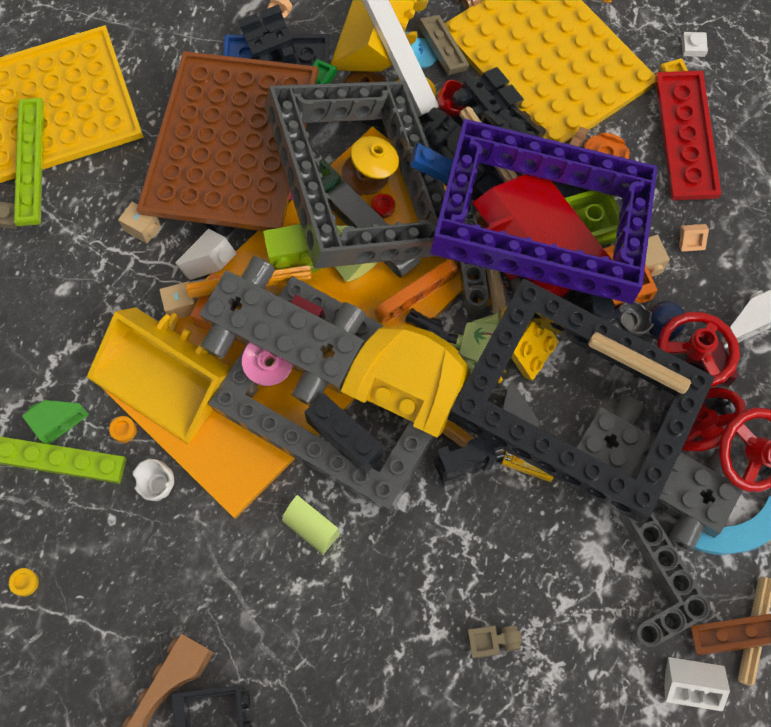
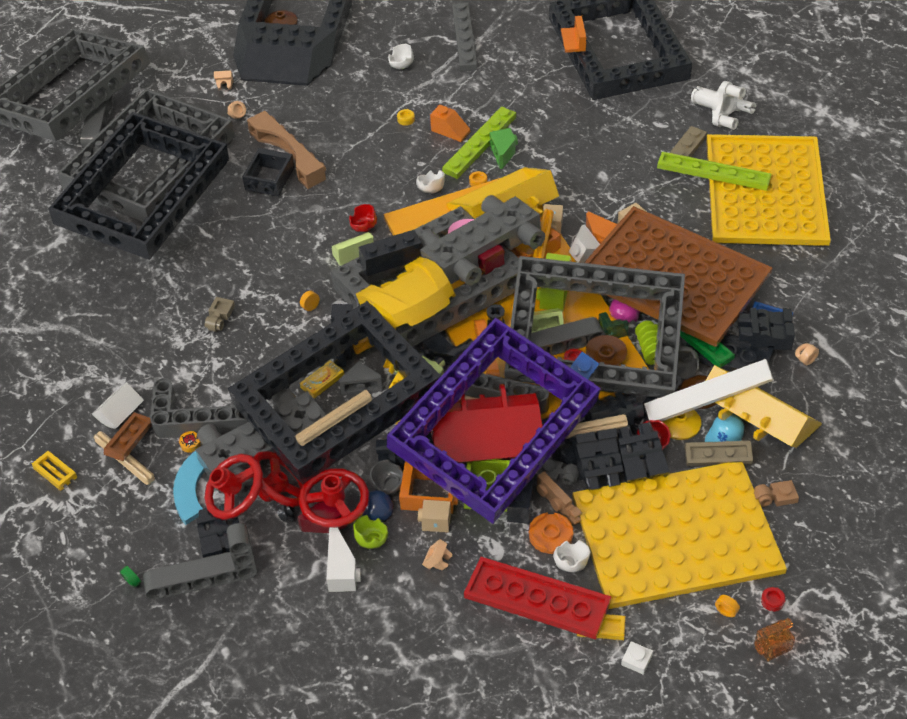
camera: 115 degrees right, 20 degrees down
(27, 509) = (448, 123): none -> orange slope
(172, 245) = (599, 226): none -> orange slope
(256, 534) = (363, 218): none -> red hair
(329, 137) = (647, 337): none -> lime piece
(362, 294) = (495, 311): none -> black bush
(374, 157) = (600, 343): yellow dish -> none
(423, 534) = (309, 300): none -> light orange tile
(629, 119) = (572, 556): none -> white hair
(695, 563) = (189, 441): none -> light orange tile
(706, 301) = (369, 532): none -> lime hair

